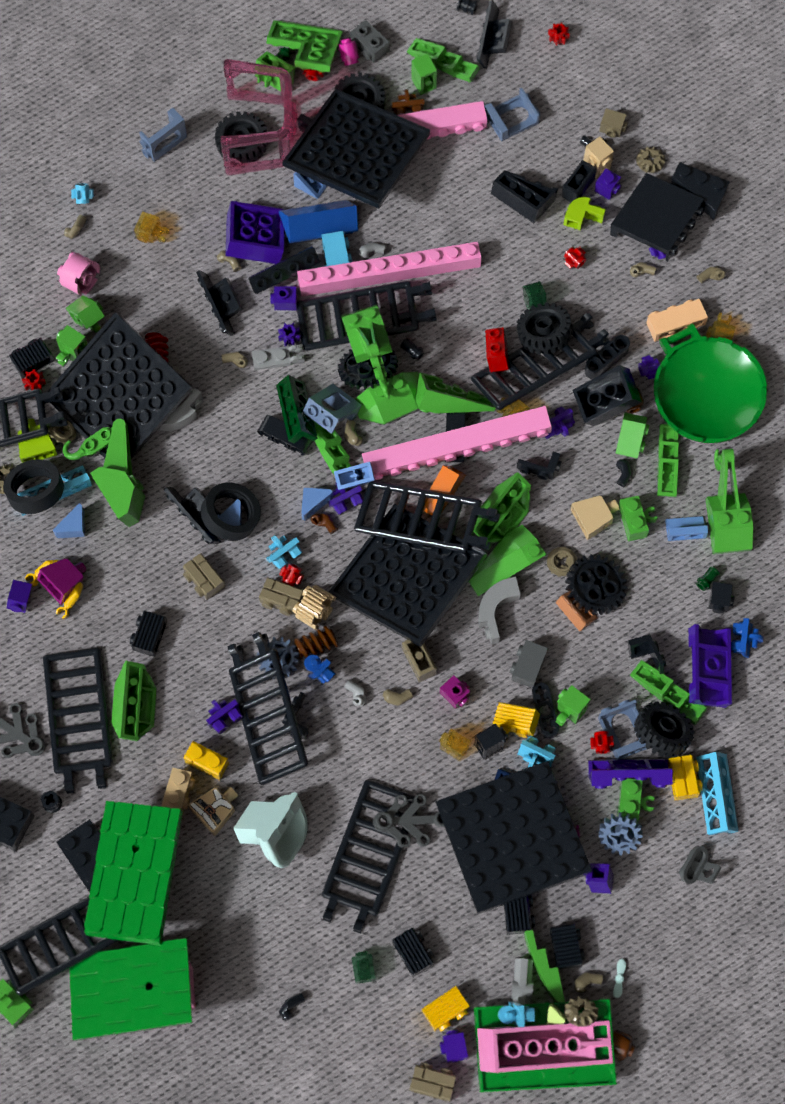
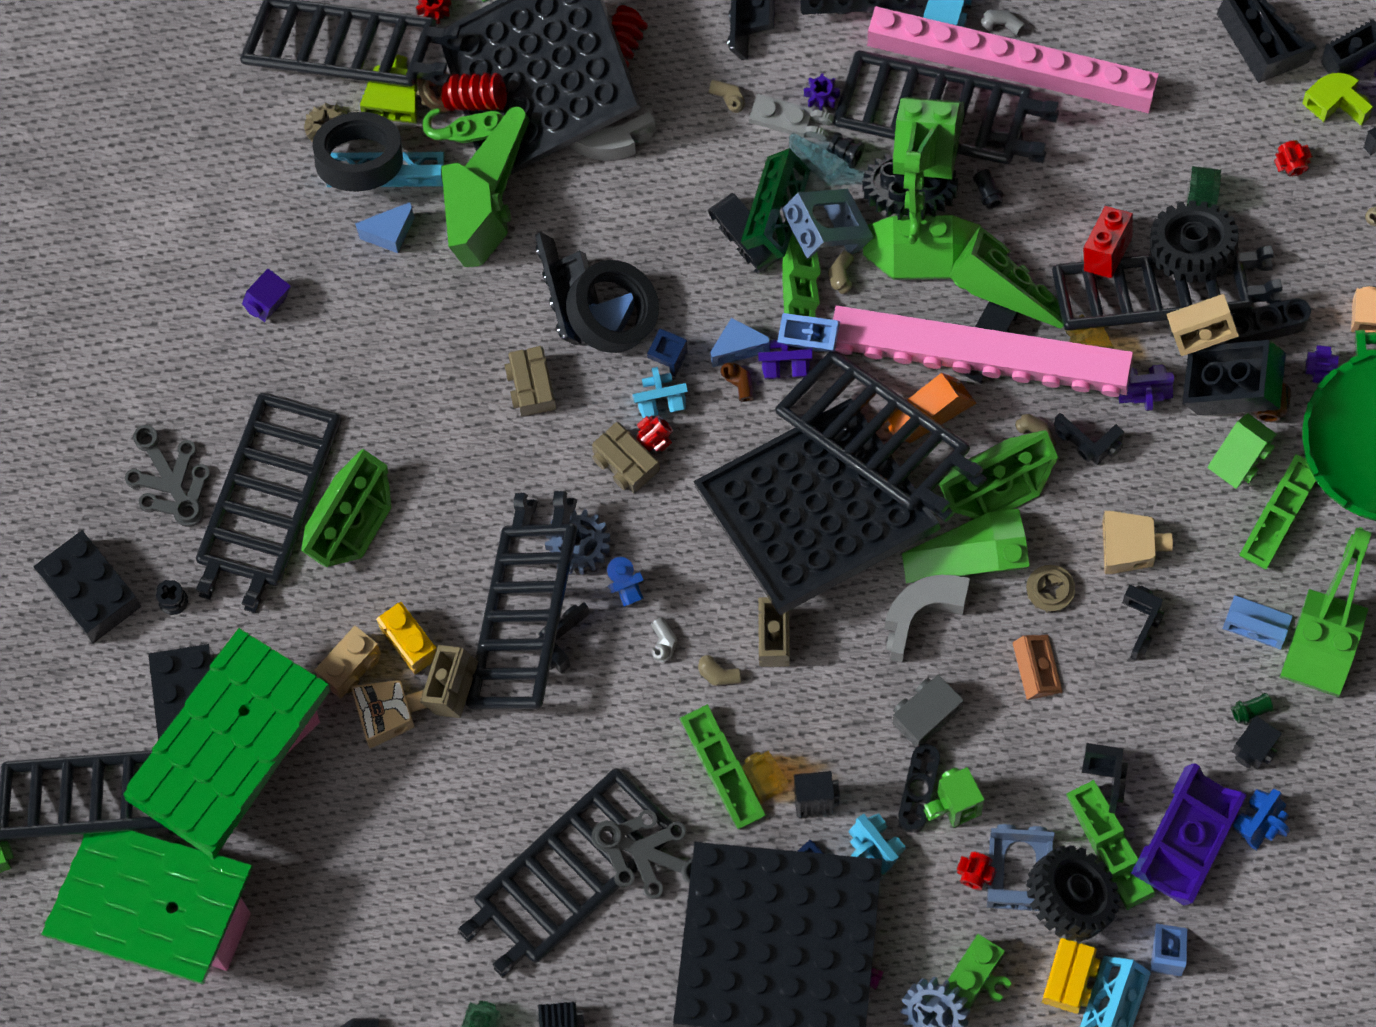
camera: 30 degrees right, 0 degrees up
(61, 580) = (333, 300): magenta torso -> none
(87, 422) = (474, 92): none -> red piece
(149, 633) = (416, 426): black brick -> none
(221, 713) = (462, 581): dark purple hips -> none
(244, 774) = (449, 681): none -> dark tan brick
(275, 522) = (668, 350): none -> dark blue panel
(276, 827) = (454, 775): light aqua piece -> none
(284, 298) = (840, 38): dark purple brick -> none
(307, 374) = (820, 161): none -> clear light blue slope
(314, 606) = (662, 491): tan brick -> none
(315, 642) = (641, 544): reddish brown piece -> none
(319, 361) = (846, 149): none -> black bush
(427, 750) = (722, 766): none -> bright green slope
(455, 692) = (803, 703): magenta brick -> none
(504, 472) = (1033, 424): none -> dark tan arm
(516, 719) = (869, 781): yellow brick -> none
(575, 373) = (1202, 325): none -> tan brick
(596, 584) = (1109, 645): black gear -> none
(602, 771) = (1032, 944): dark purple piece -> none
(617, 544) = (1143, 600): none -> black bracket
(626, 472) = (1211, 500): black arm -> none
(635, 518) = (1188, 573): bright green brick -> none
(731, 736) = (1169, 950): none -> medium blue slope

